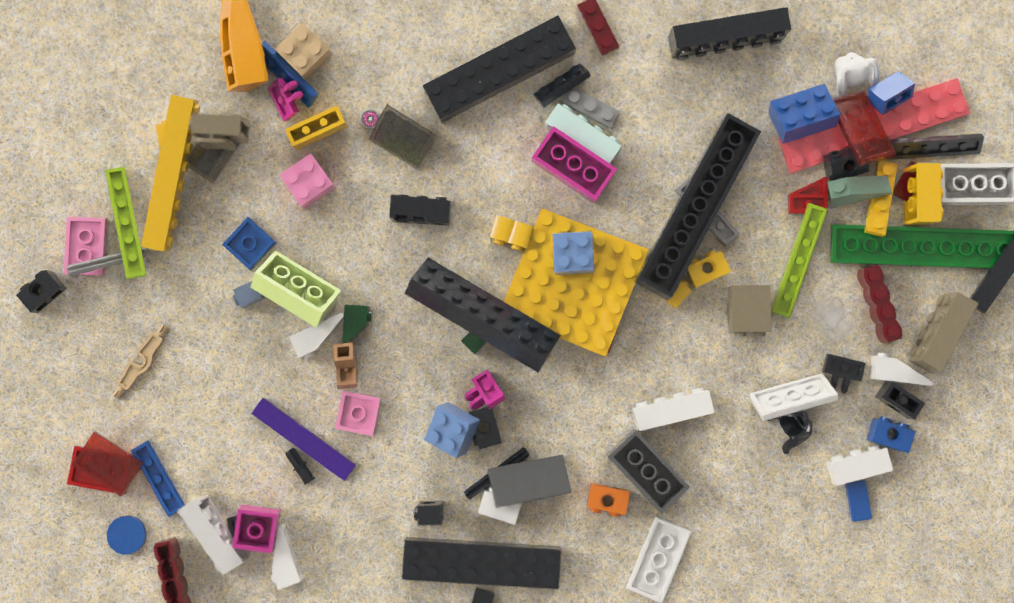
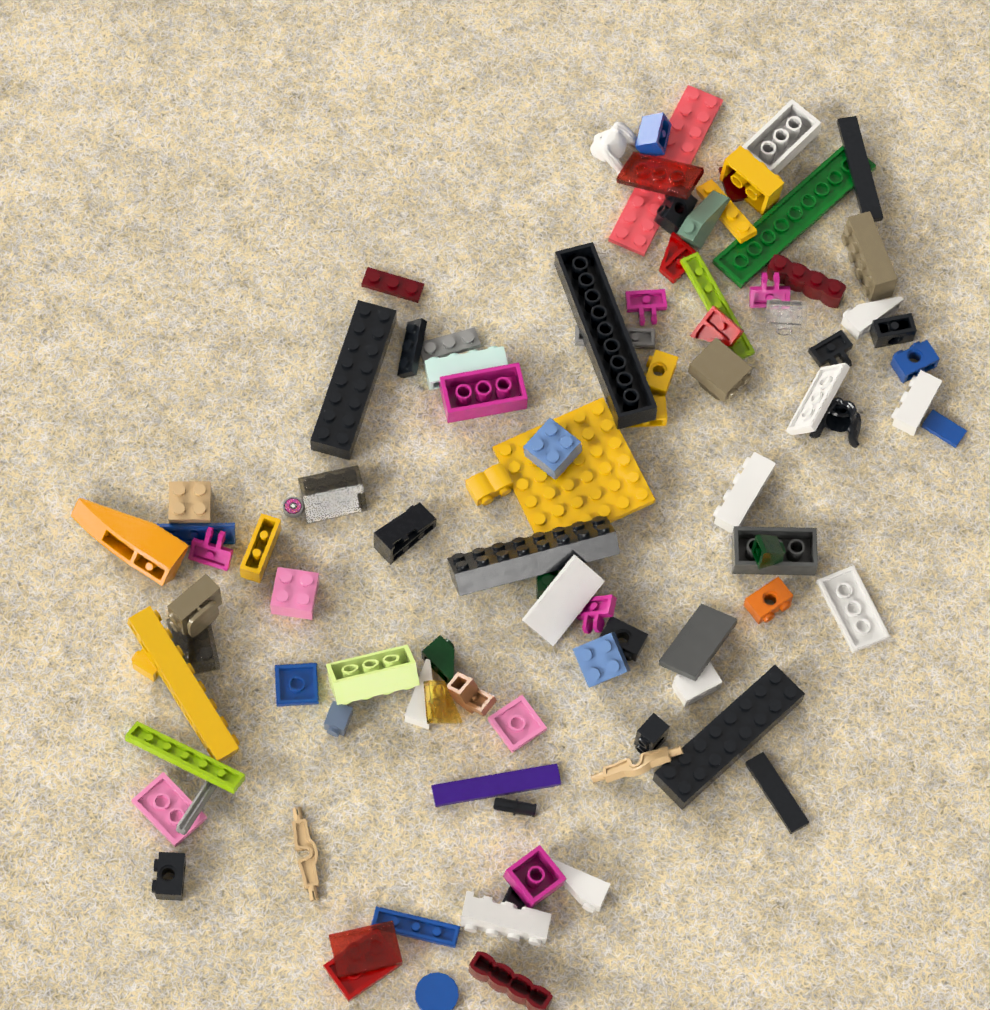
camera: 50 degrees left, 20 degrees down
(317, 353) = (439, 704): none -> clear yellow wing
(408, 527) = (626, 768): none -> tan piece
(470, 364) = (563, 600): none -> white tile
(484, 482) = (667, 675): black axle -> none
(636, 474) = (767, 551): none -> dark green slope
(729, 33) = (495, 200): black brick -> none
(755, 208) = (646, 300): none -> dark pink hinge
(781, 278) = (719, 326): none -> wing
(804, 113) = (608, 204): blue brick -> none
(843, 289) = (760, 294): none -> dark pink hinge
(937, 146) = (726, 141): black plate -> none

